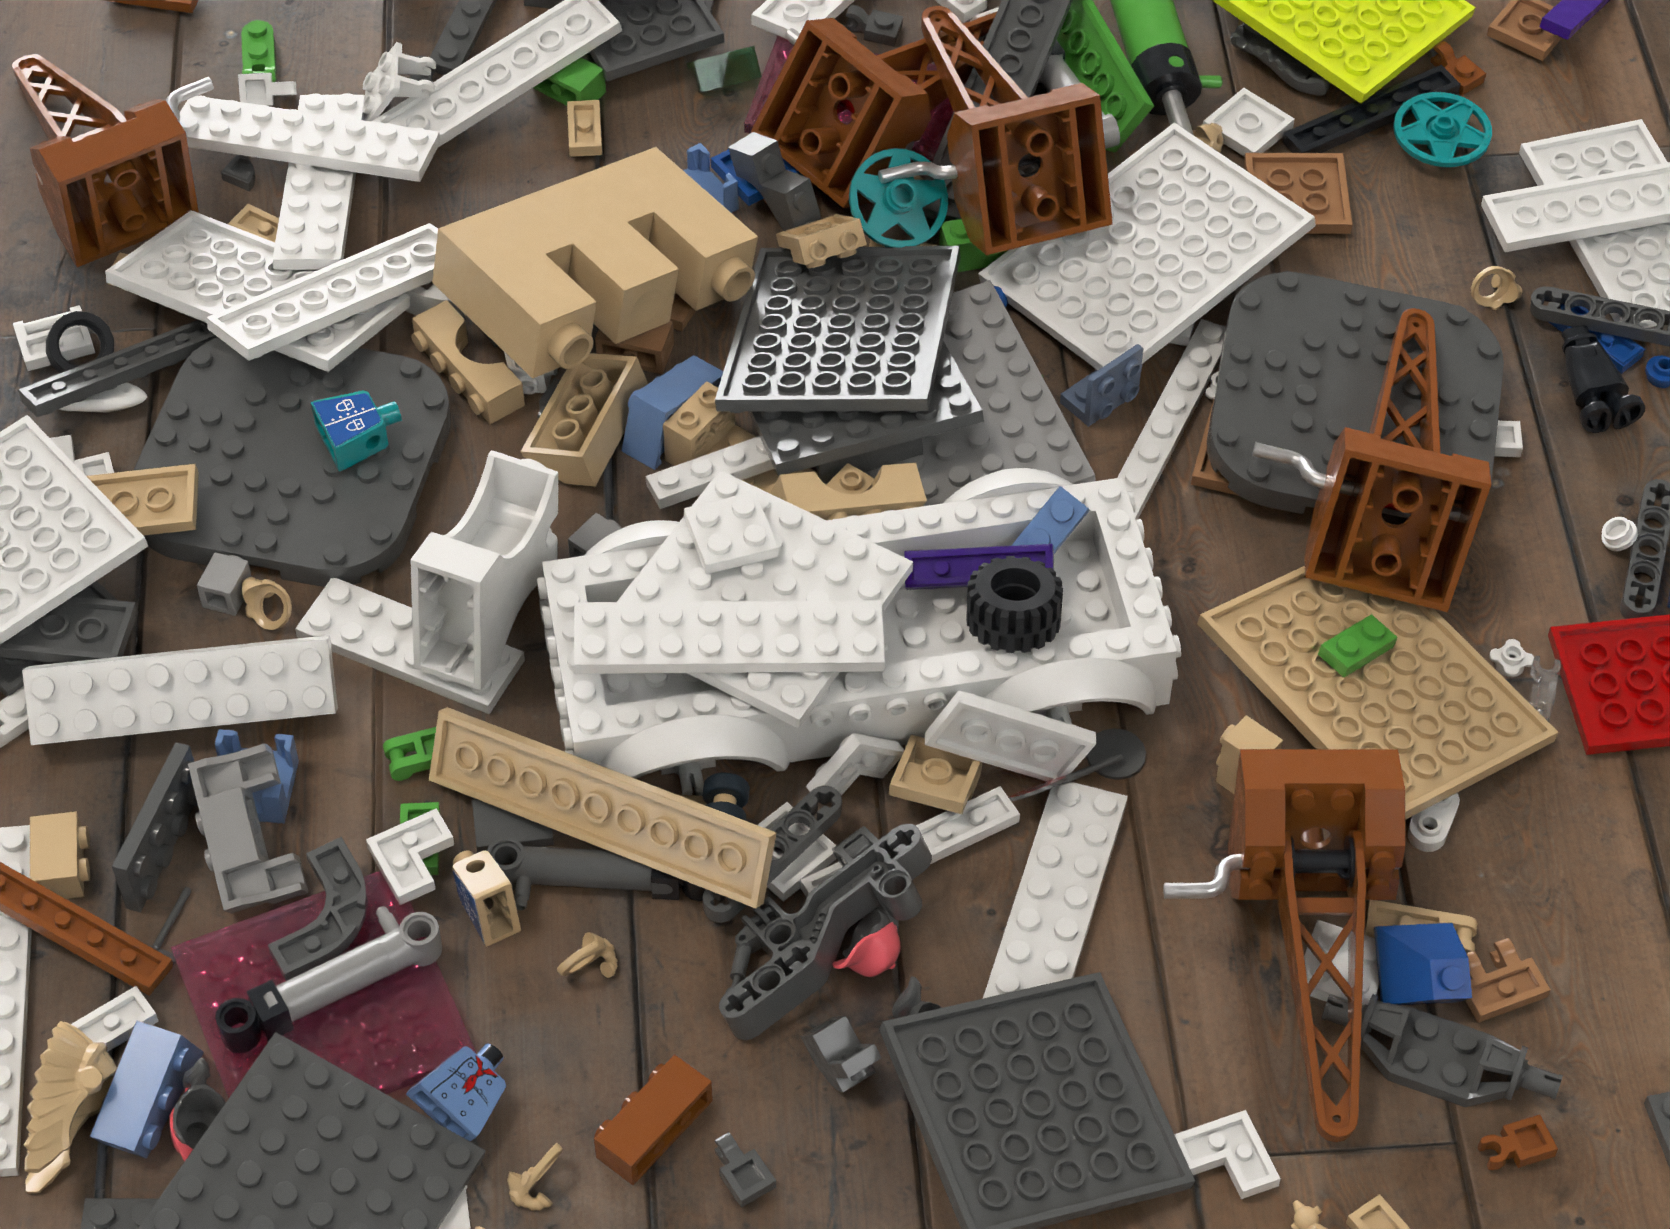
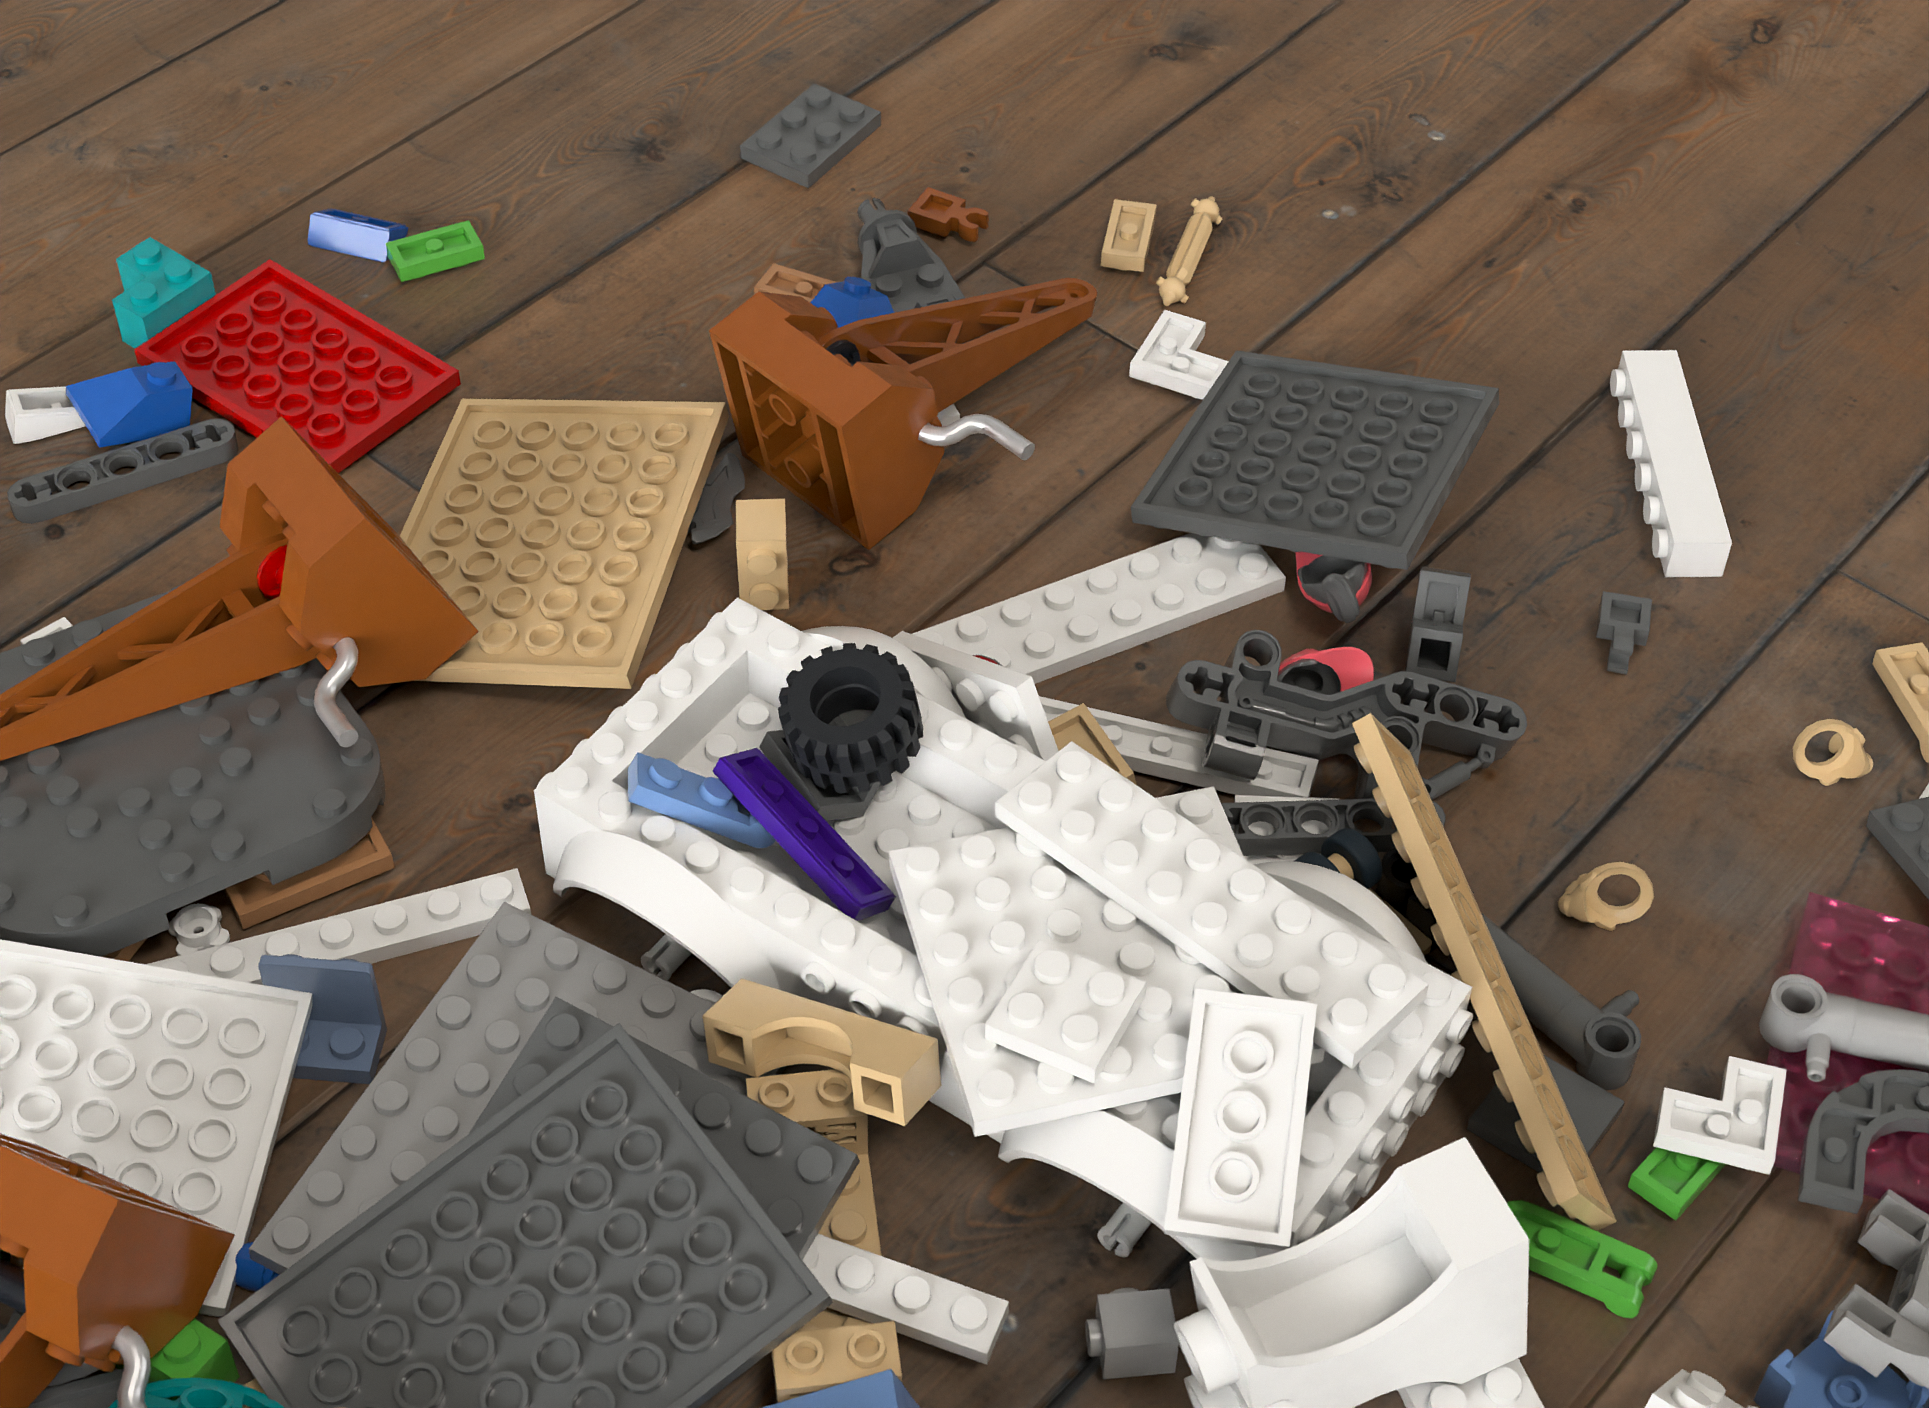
camera: 135 degrees left, 5 degrees down
(462, 1090) = (1862, 857): medium blue torso -> none
(481, 878) = (1671, 1020): tan torso -> none
(603, 553) = (1241, 1119): none -> white plate
(652, 1119) = (1672, 716): dark orange brick -> none
(1357, 645) = (525, 552): bright green plate -> none
(1511, 666) = (390, 486): white plate -> none
(1543, 695) = (417, 434): clear plate -> none
(1619, 534) = (126, 493): white plate -> none

